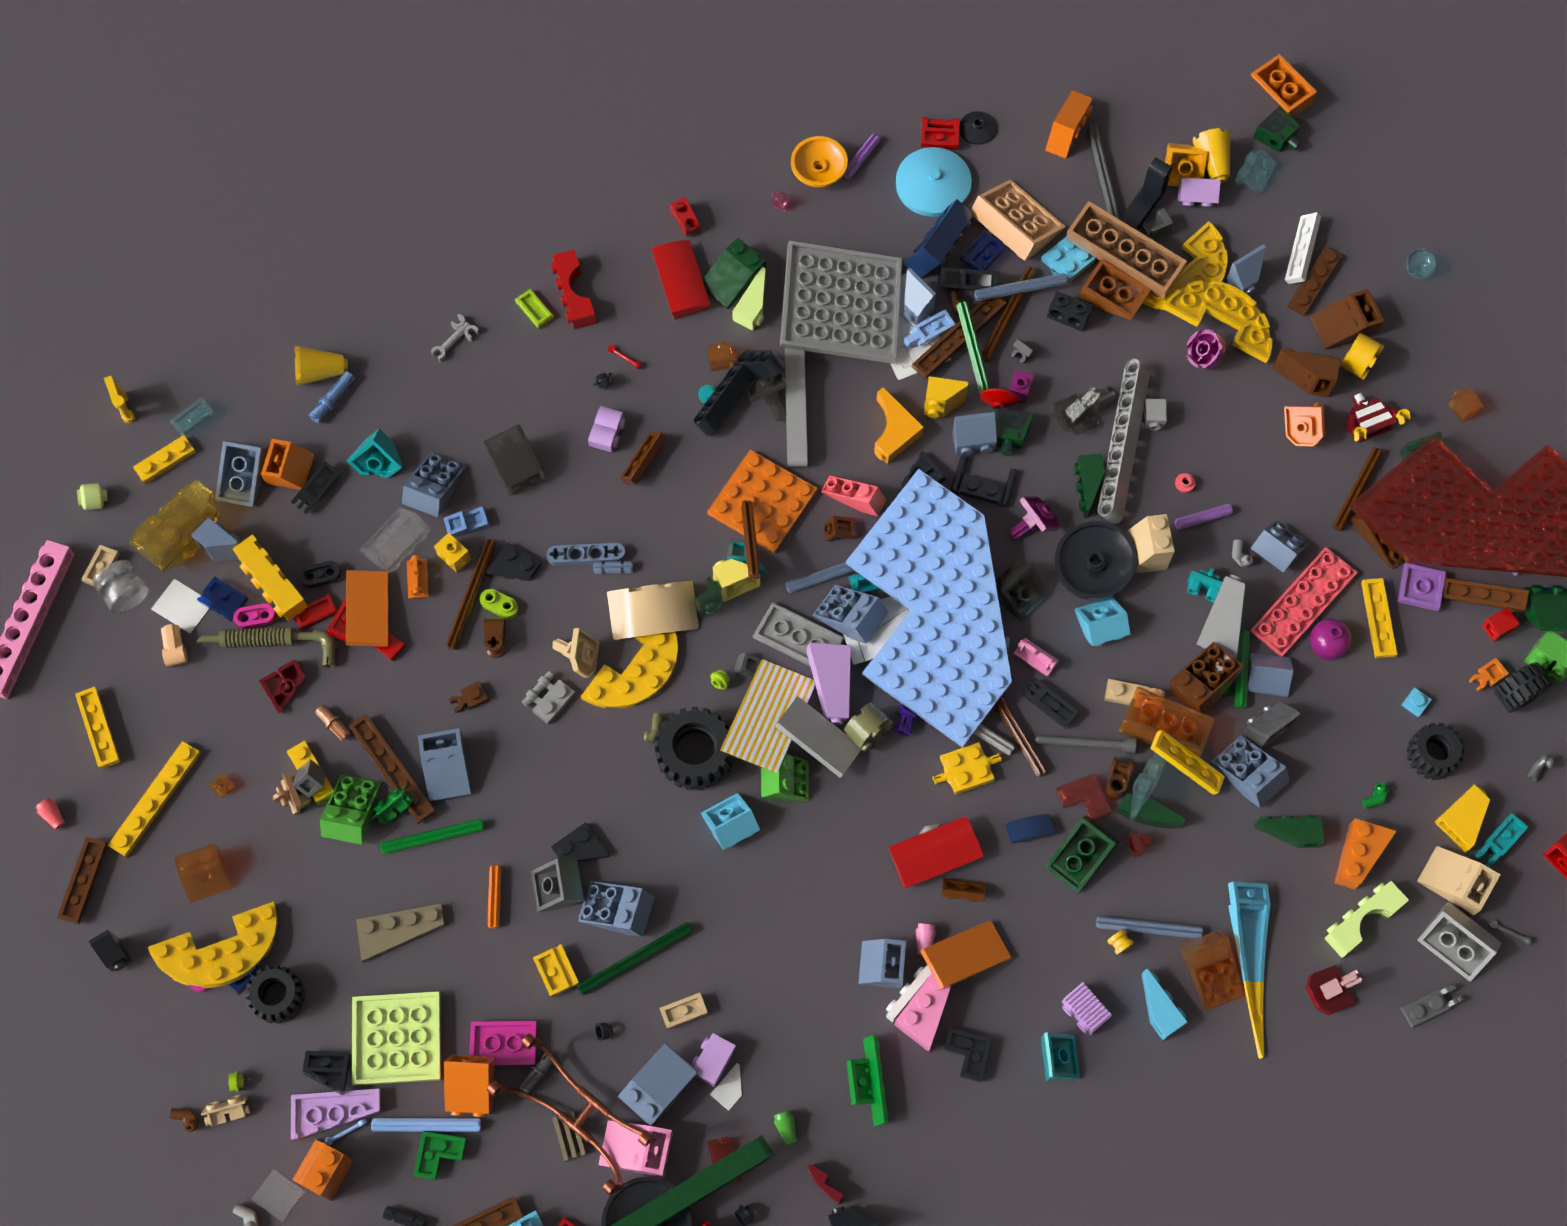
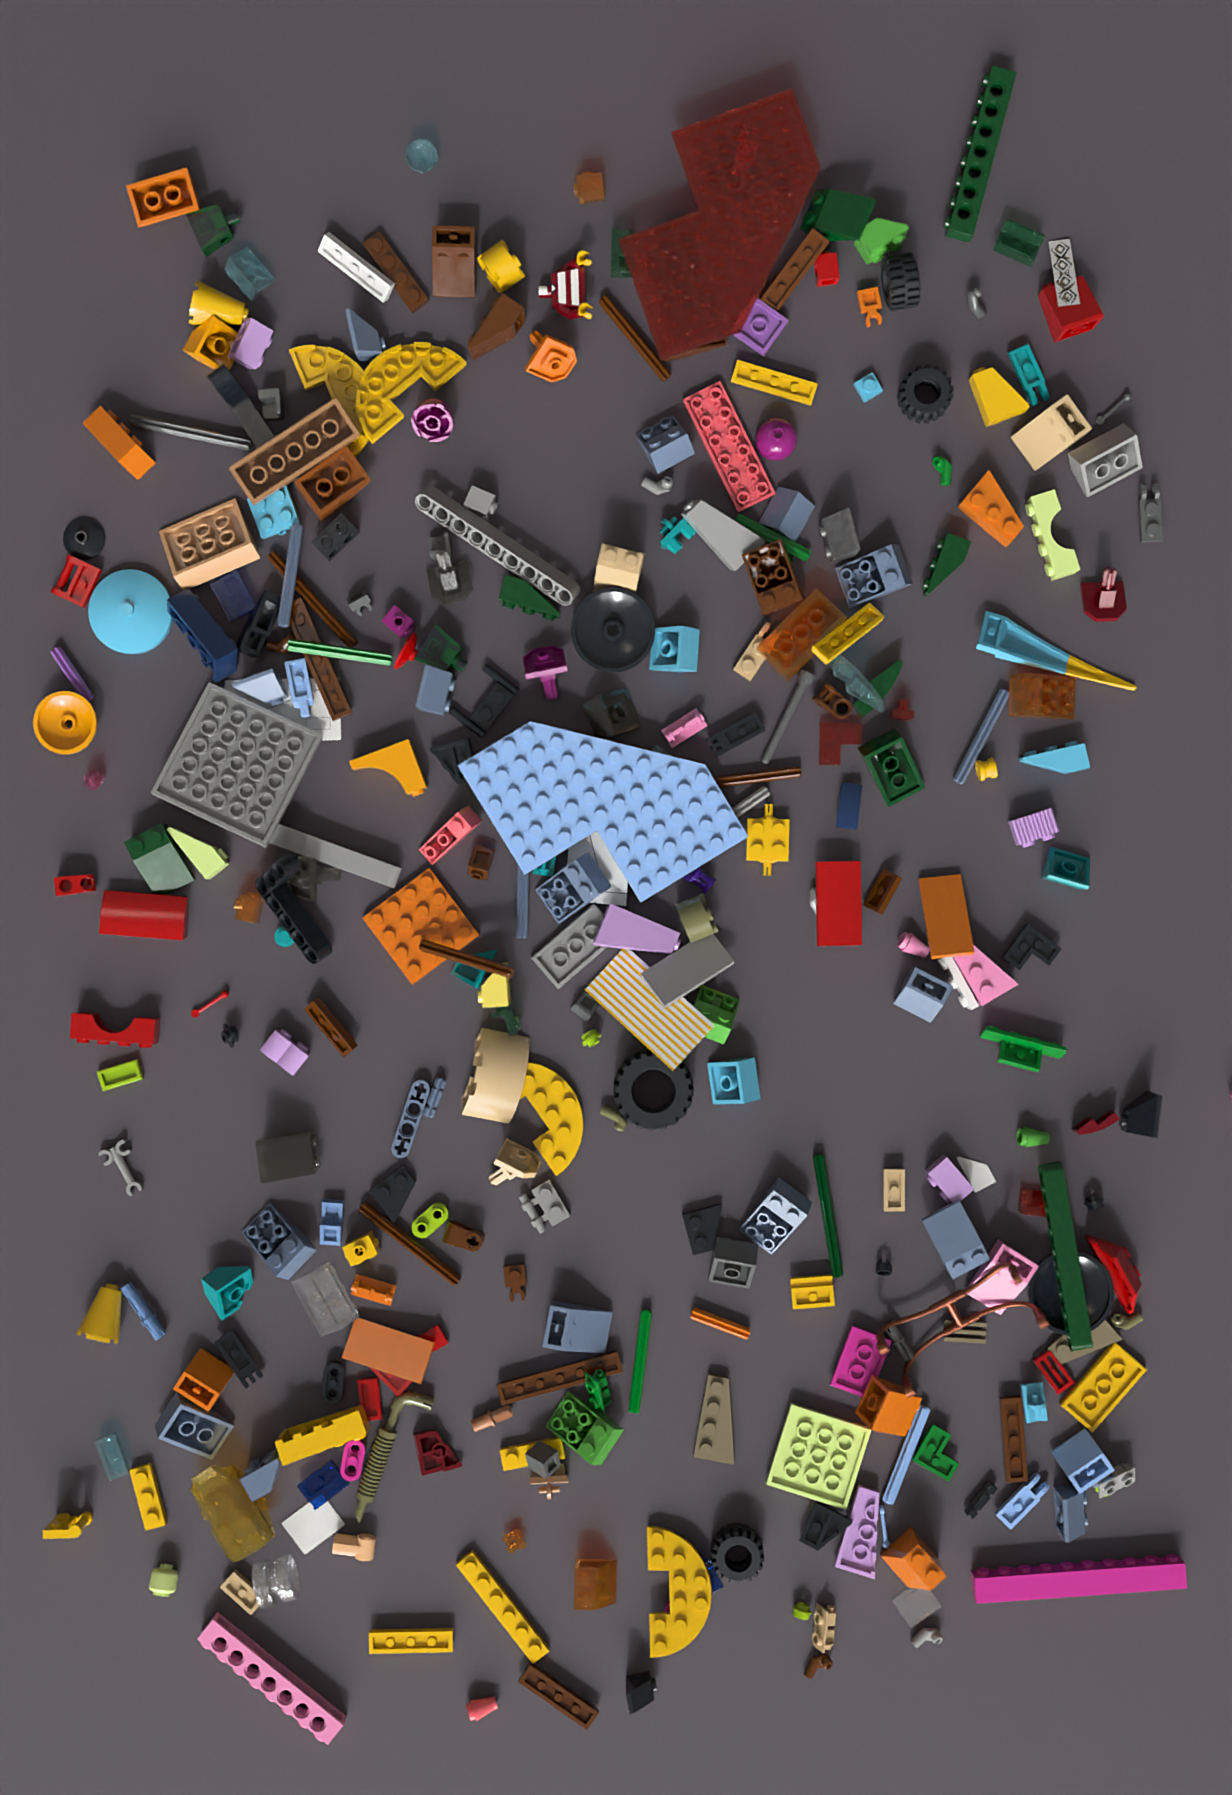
camera: 70 degrees left, 20 degrees up
(944, 396) = (383, 706): yellow slope -> none
(1184, 488) = (563, 511): coral plate -> none
(1203, 516) = (605, 502): medium lavender axle -> none

